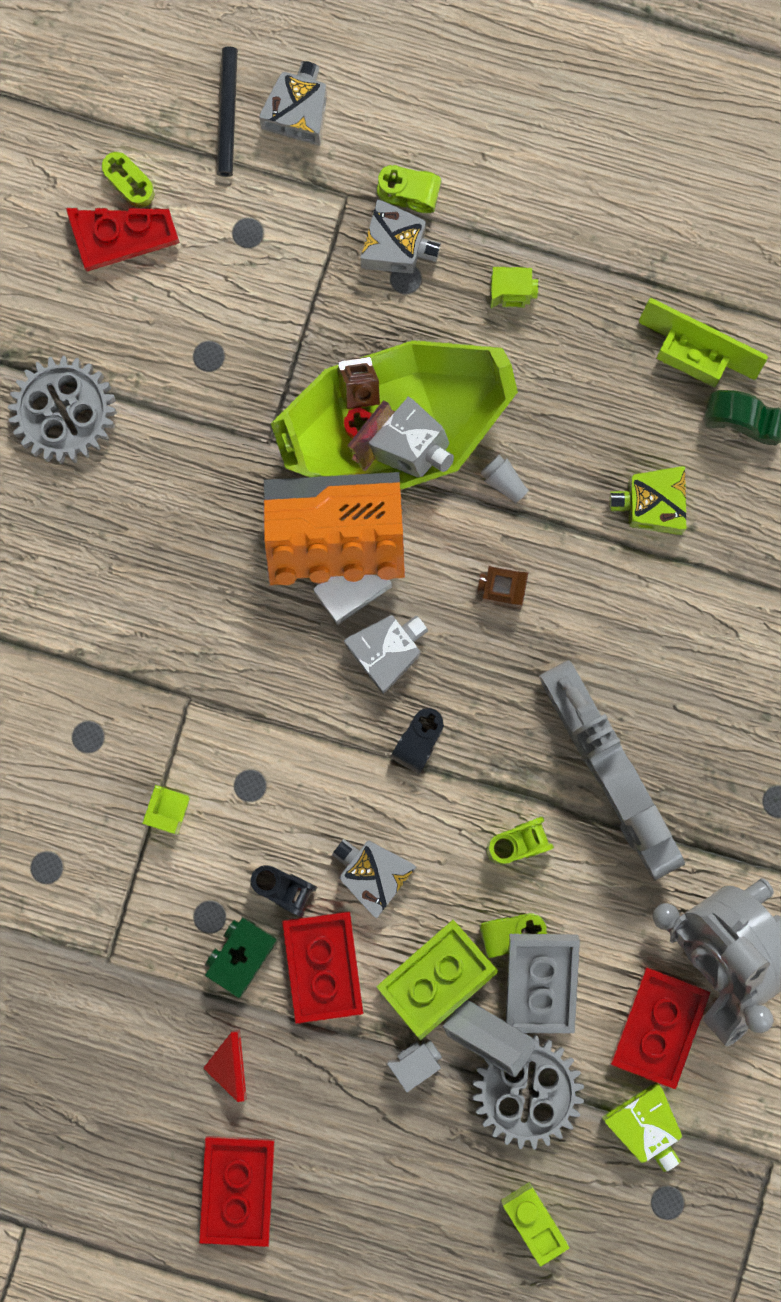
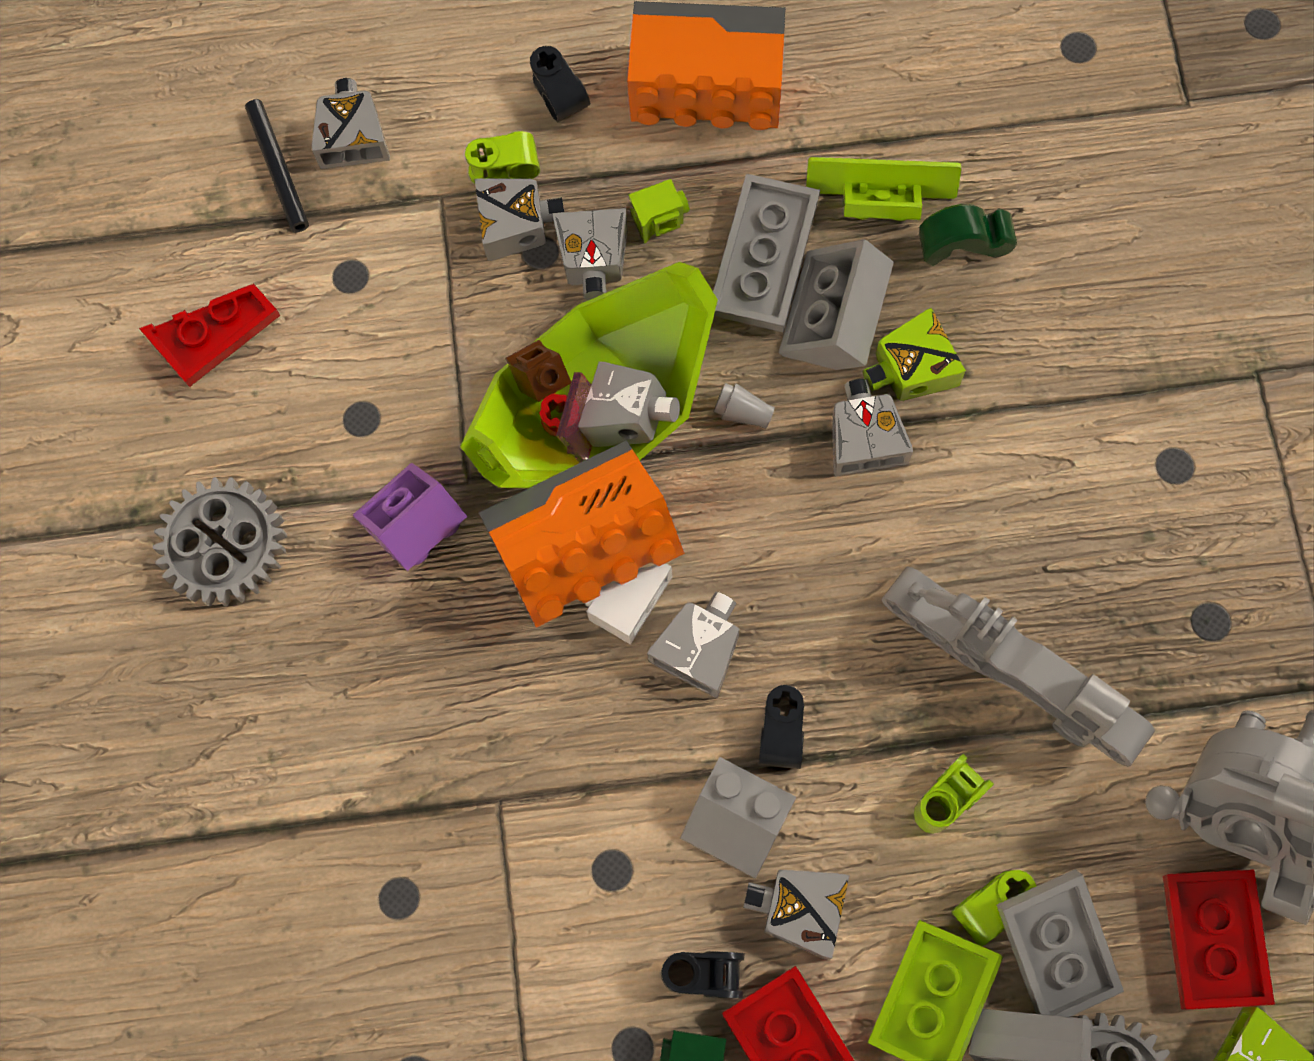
camera: 20 degrees left, 10 degrees down
(123, 185) = (200, 268): lime beam -> none
(166, 810) = (527, 942): lime panel -> none
(213, 453) = (410, 516): none -> medium lavender slope
(356, 789) = (737, 817): none -> light grey slope
(446, 297) = (592, 247): none -> light grey torso
(480, 145) = (557, 83): none -> black piece
(503, 587) = (797, 520): reddish brown window -> none
(580, 359) = (764, 252): none -> light grey plate
(590, 541) = (867, 432): none -> light grey torso
(605, 181) = (706, 64): none -> orange piece
(615, 429) = (837, 305): none -> light grey slope

